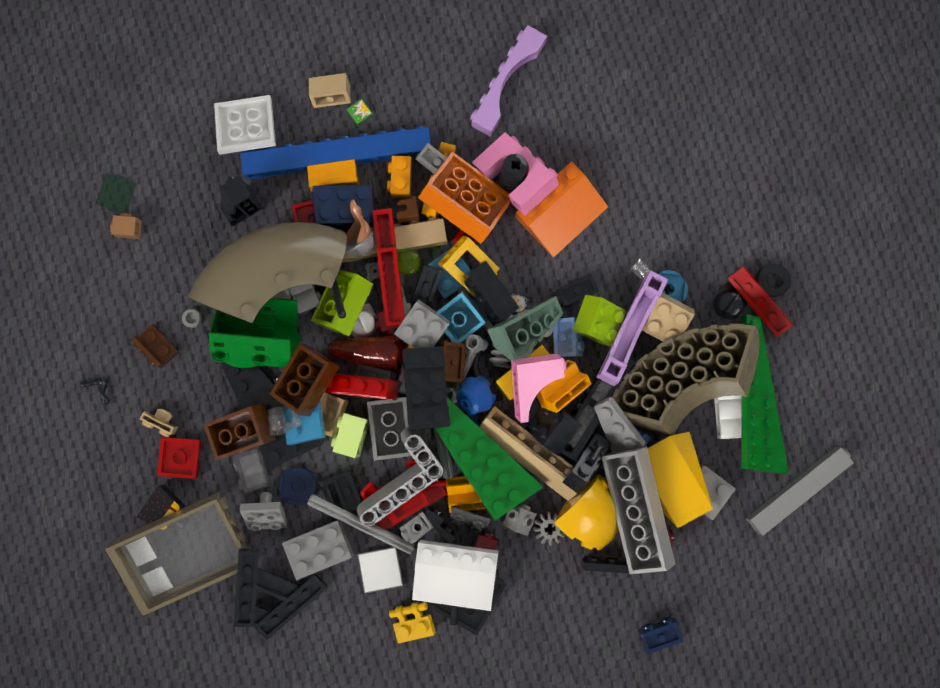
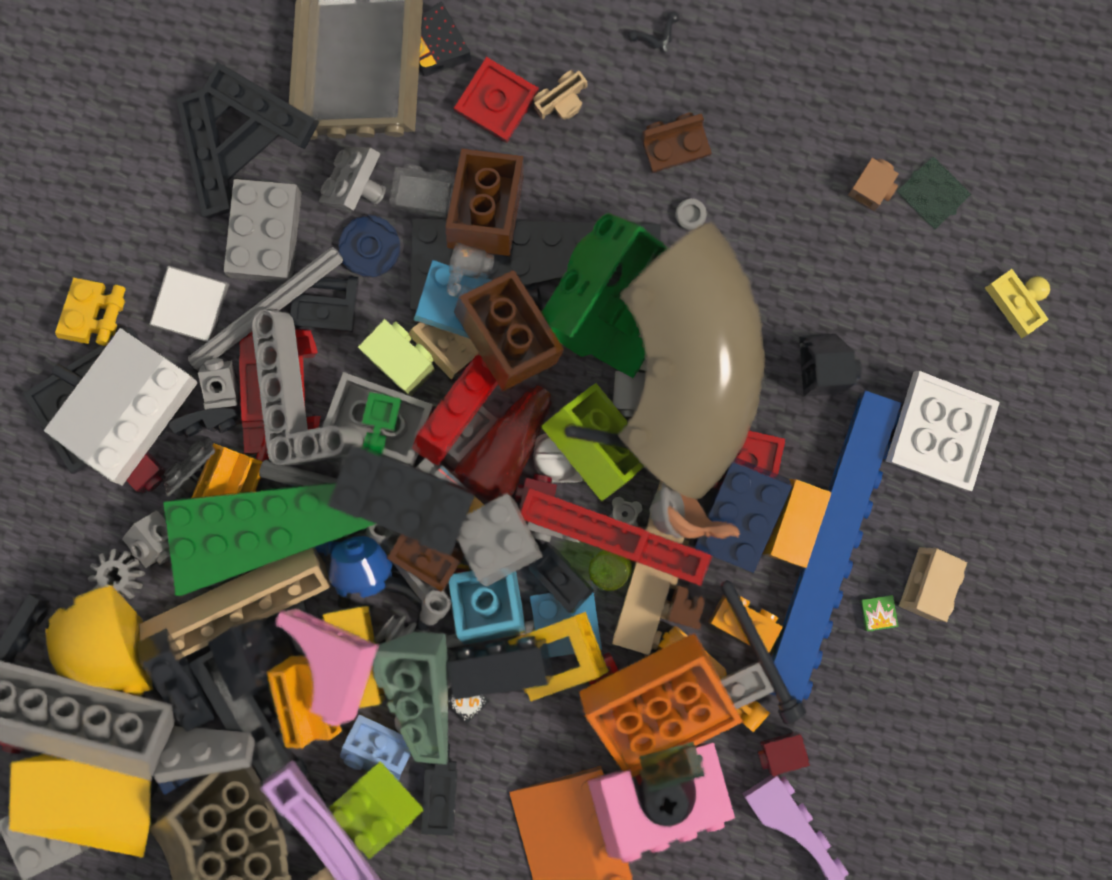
camera: 115 degrees right, 0 degrees up
(154, 119) = (1019, 301): none -> light yellow plate
(386, 427) = (381, 414): none -> green plate
(432, 130) = (790, 707): none -> black piece
(458, 124) = (783, 753): none -> dark red brick
(494, 174) = (671, 766): none -> piece

